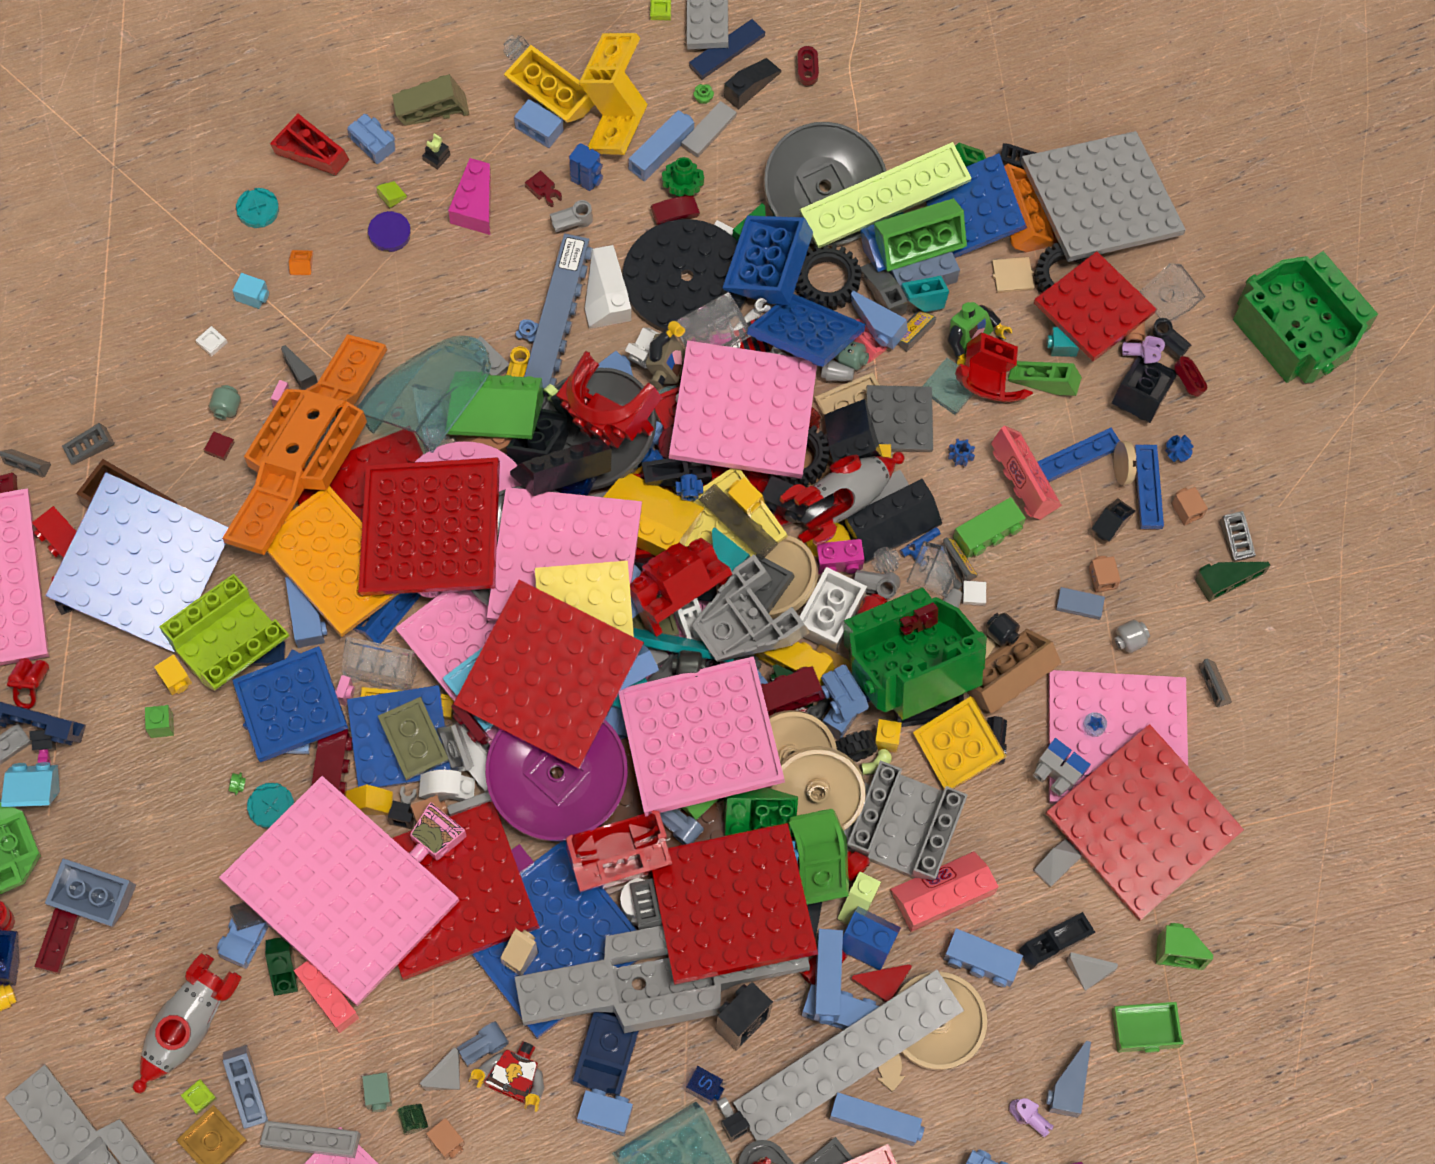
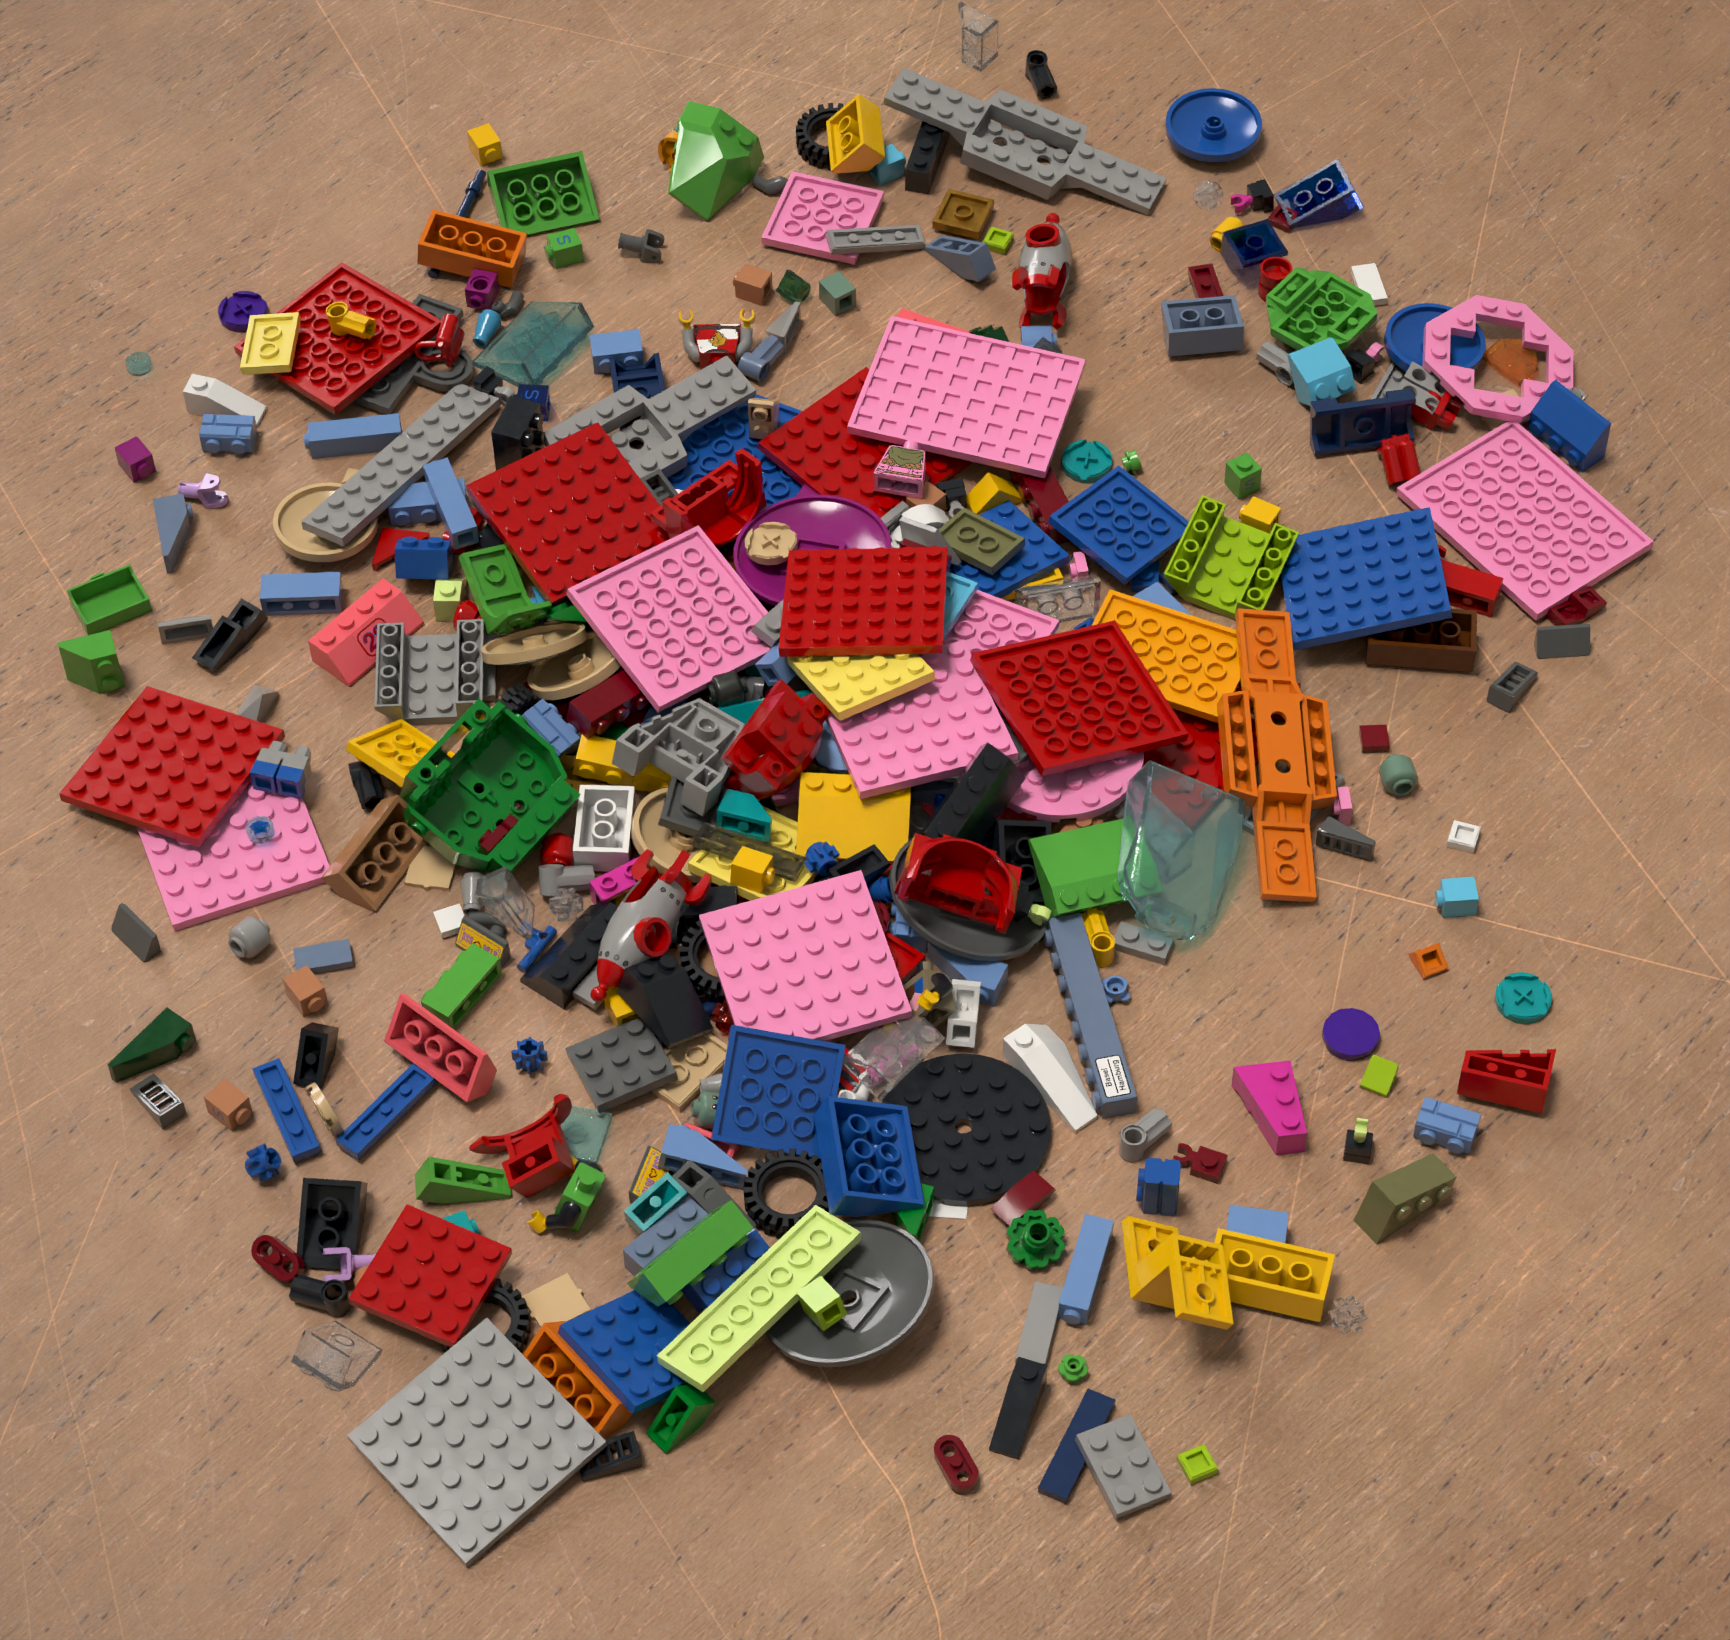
camera: 160 degrees right, 15 degrees down
(47, 824) = (1277, 360): none -> light grey piece
(587, 790) = (770, 543): none -> tan tile
(627, 699) = (769, 626): none -> light grey plate
(848, 170) = (821, 1303): none -> lime brick
(1003, 629) = (401, 886): black head -> none
(1283, 298) = (117, 1364): green piece -> none

